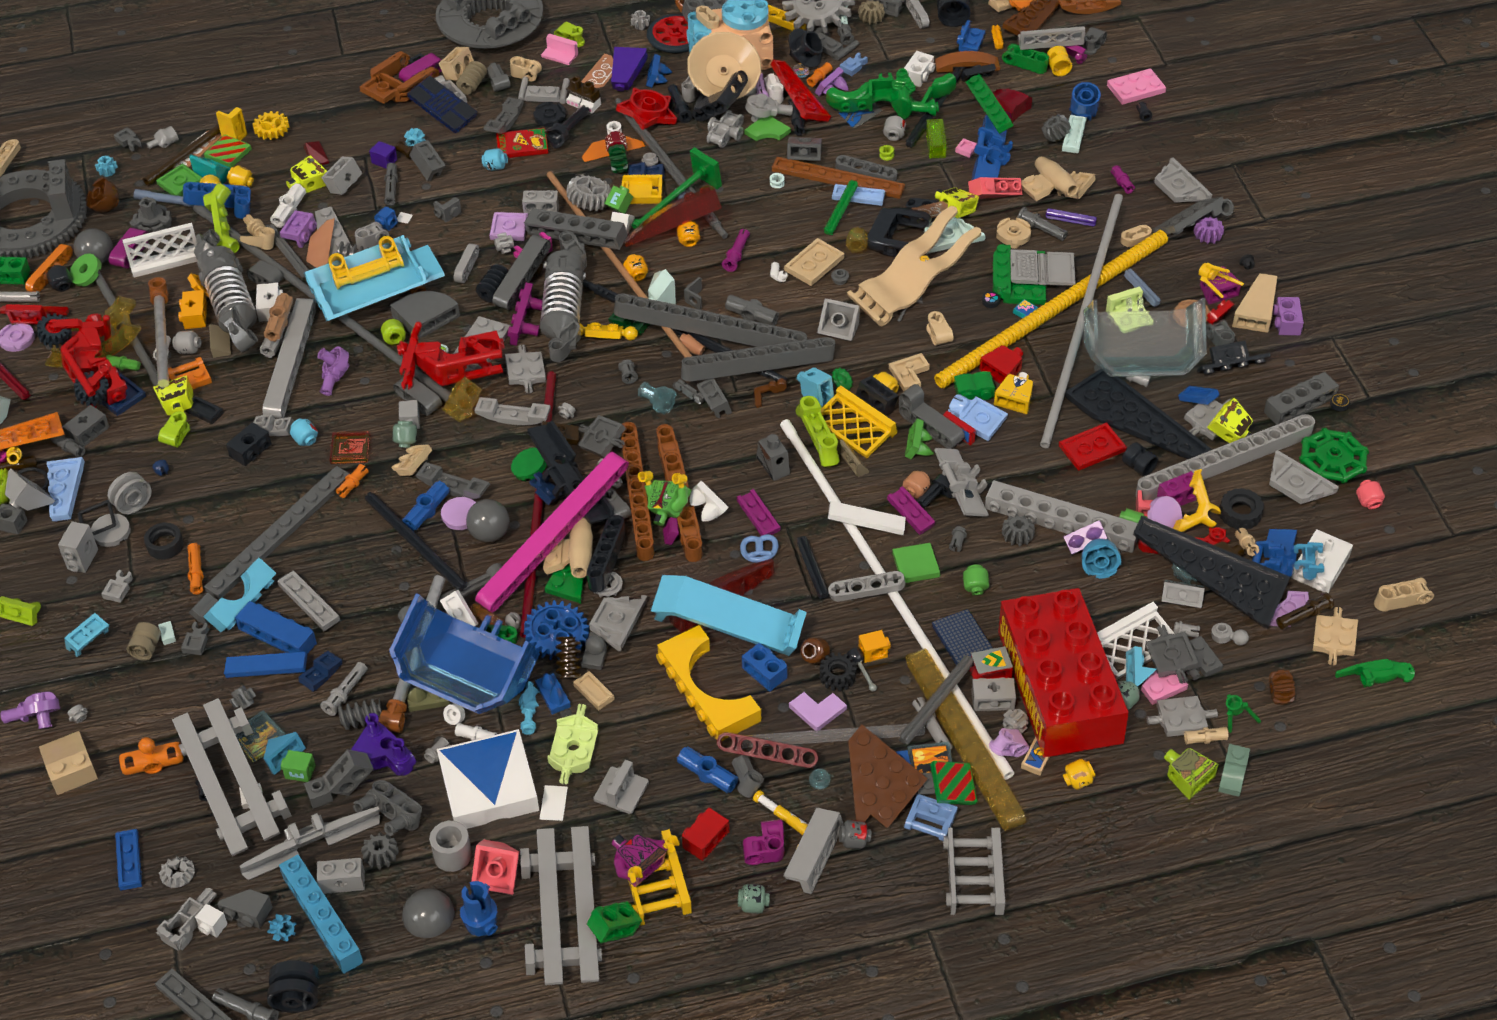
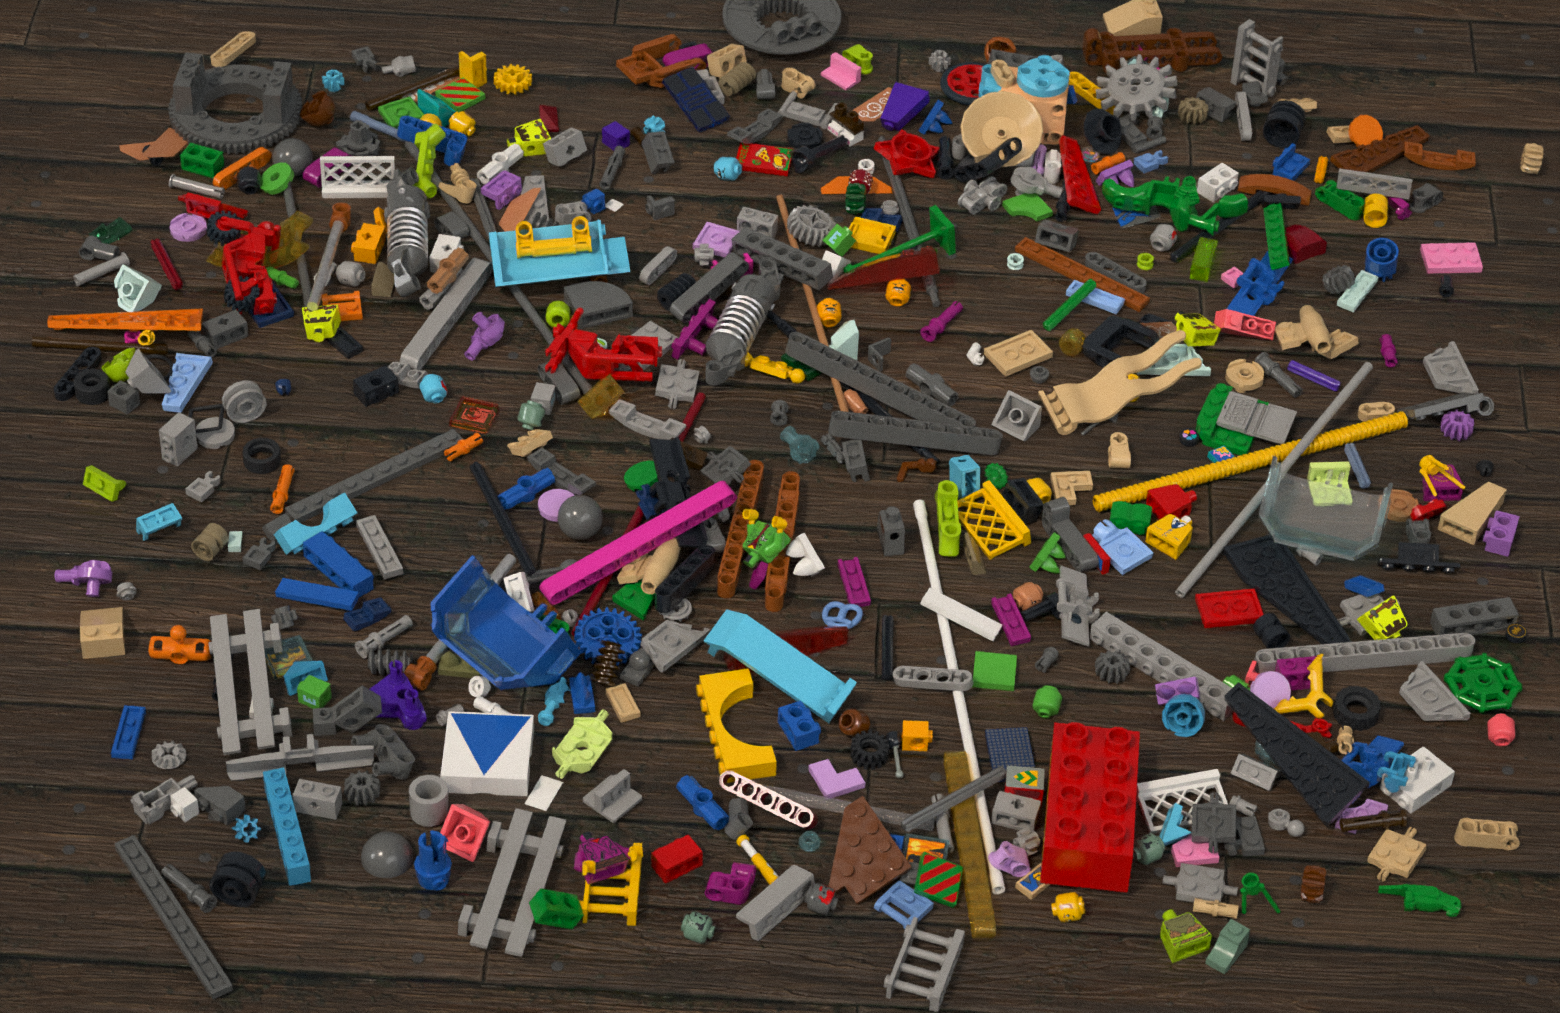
camera: 15 degrees right, 5 degrees down
(174, 429) = (309, 354): lime piece -> none

